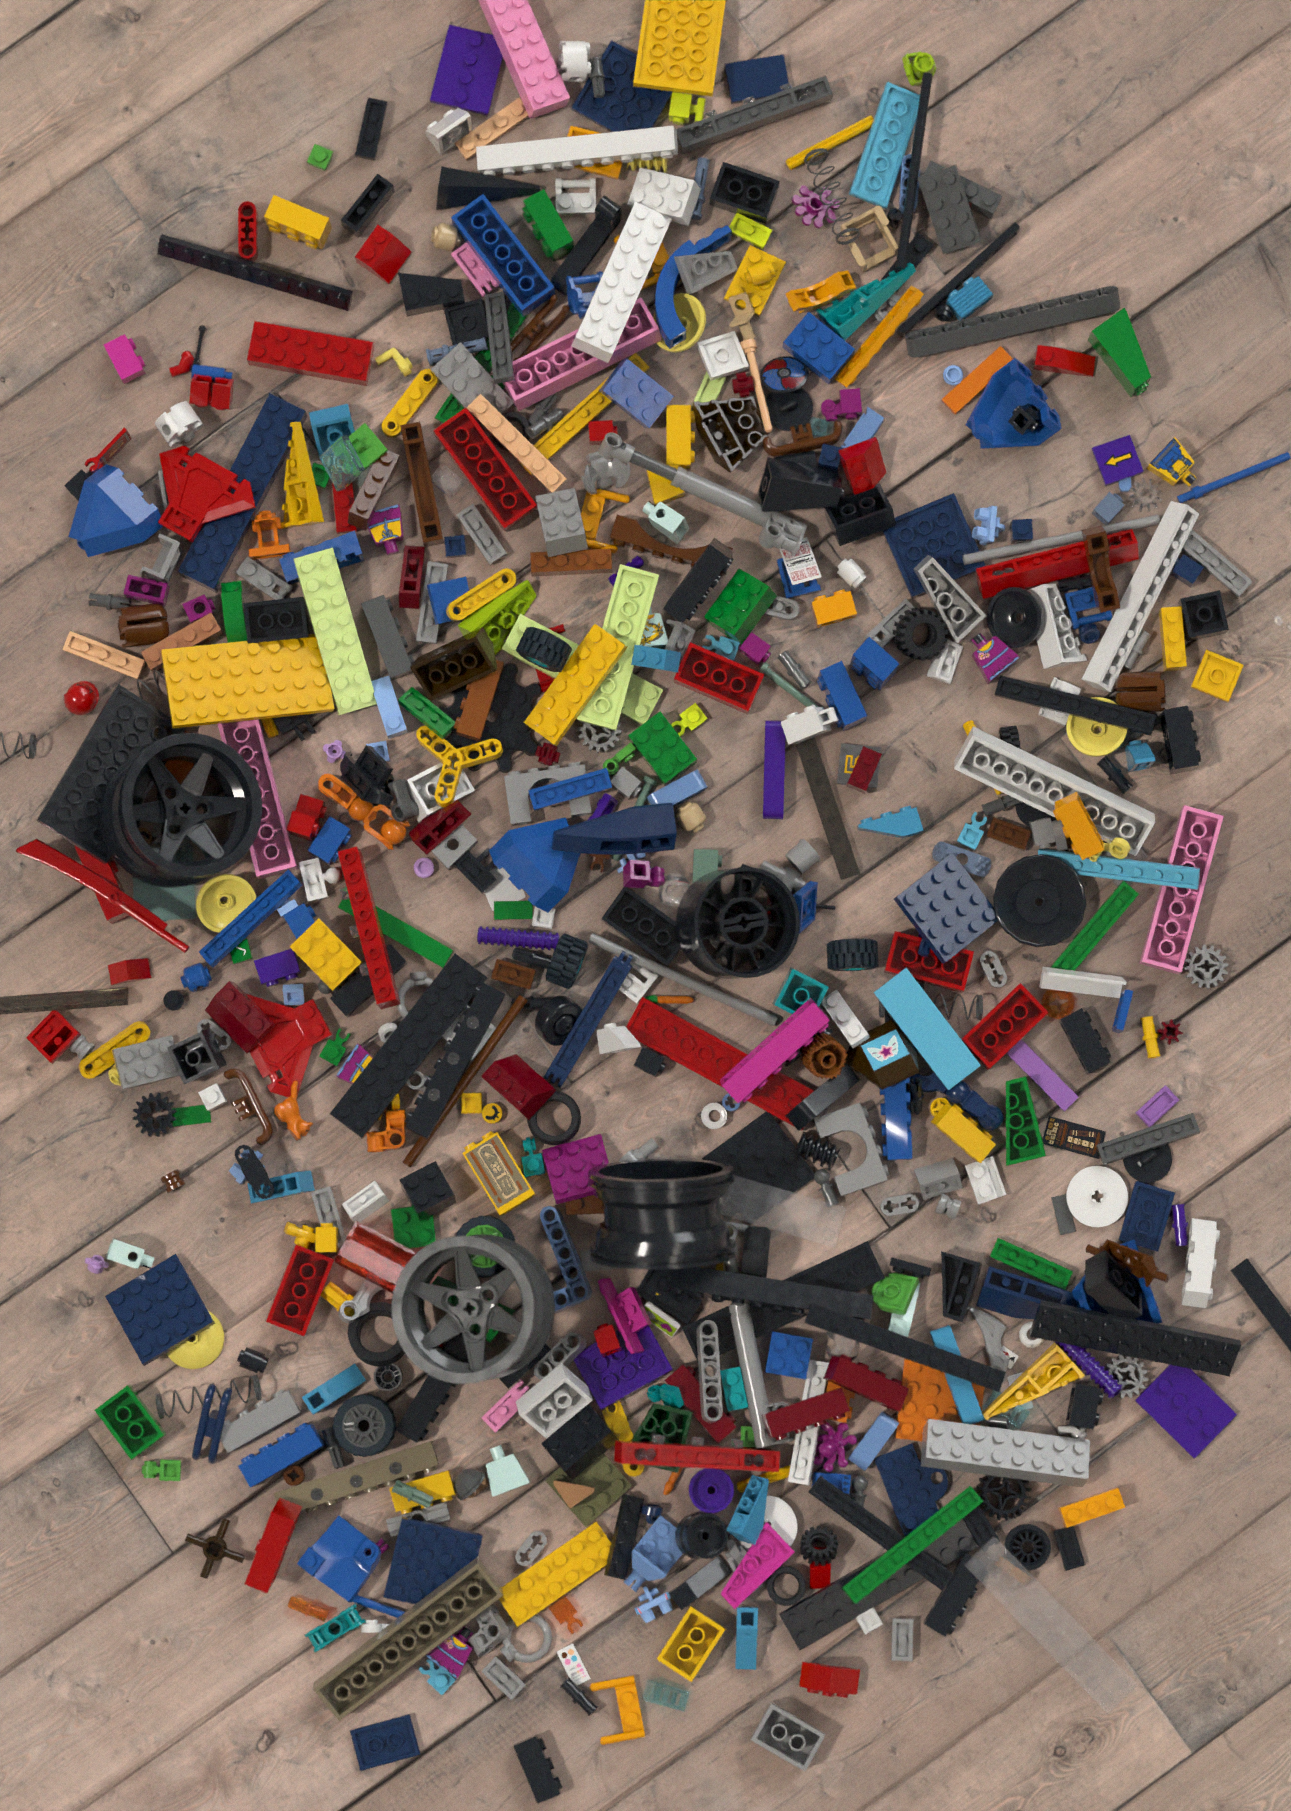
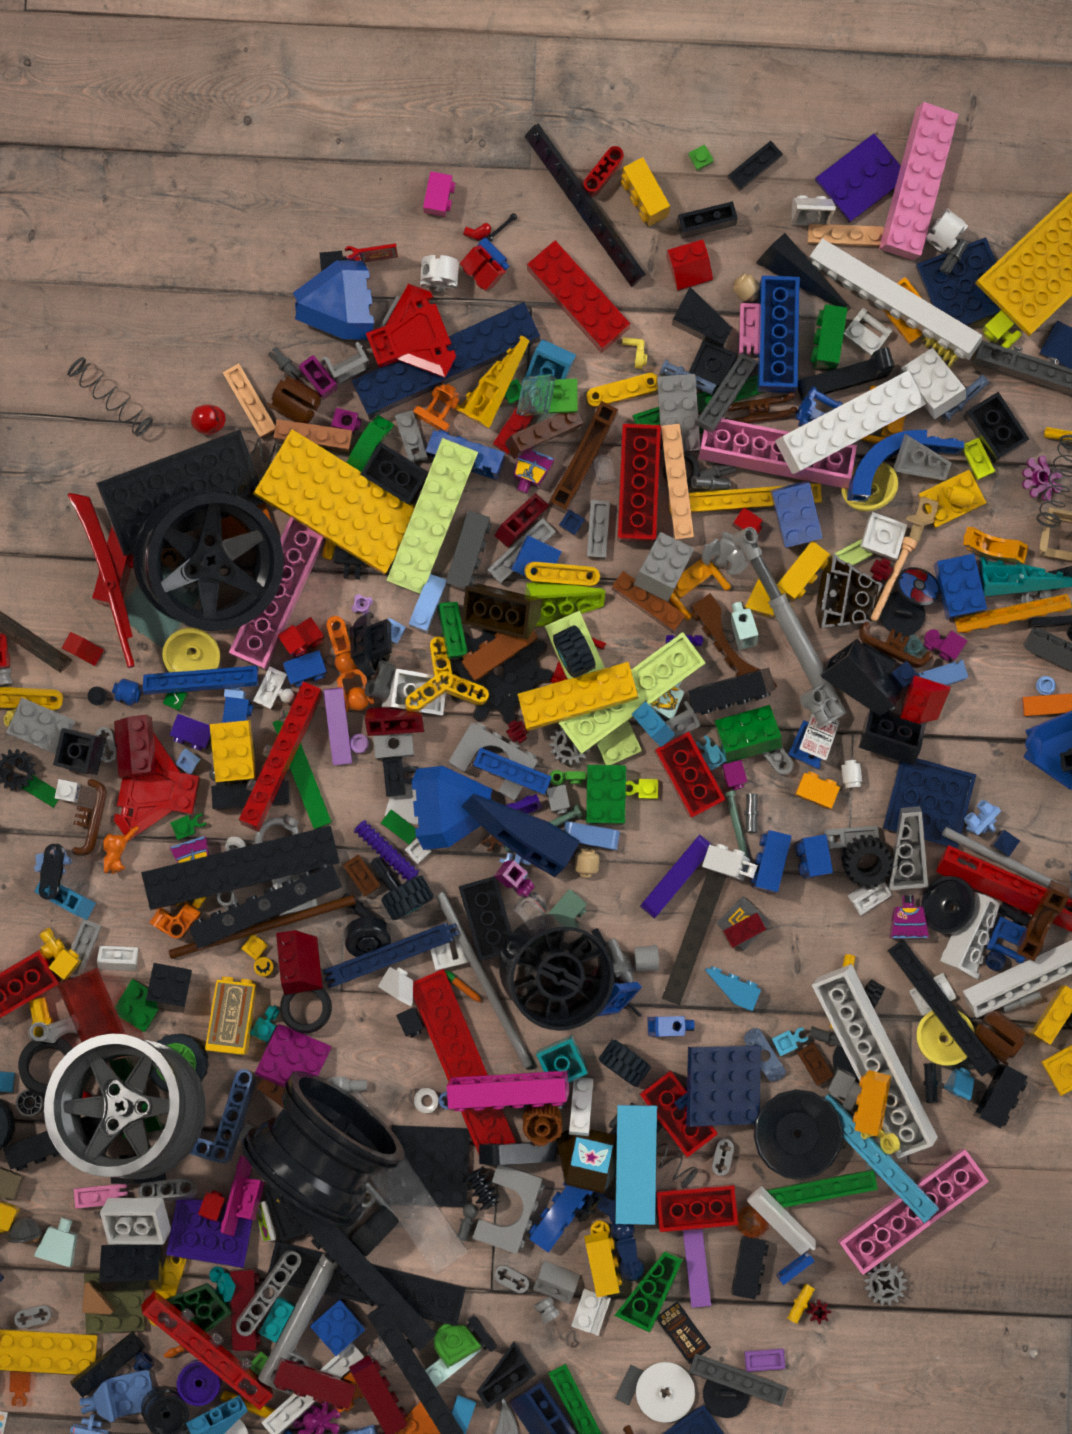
camera: 35 degrees right, 0 degrees up
(395, 866) = (337, 726): none -> medium lavender tile
(860, 900) = (662, 1026): none -> torso

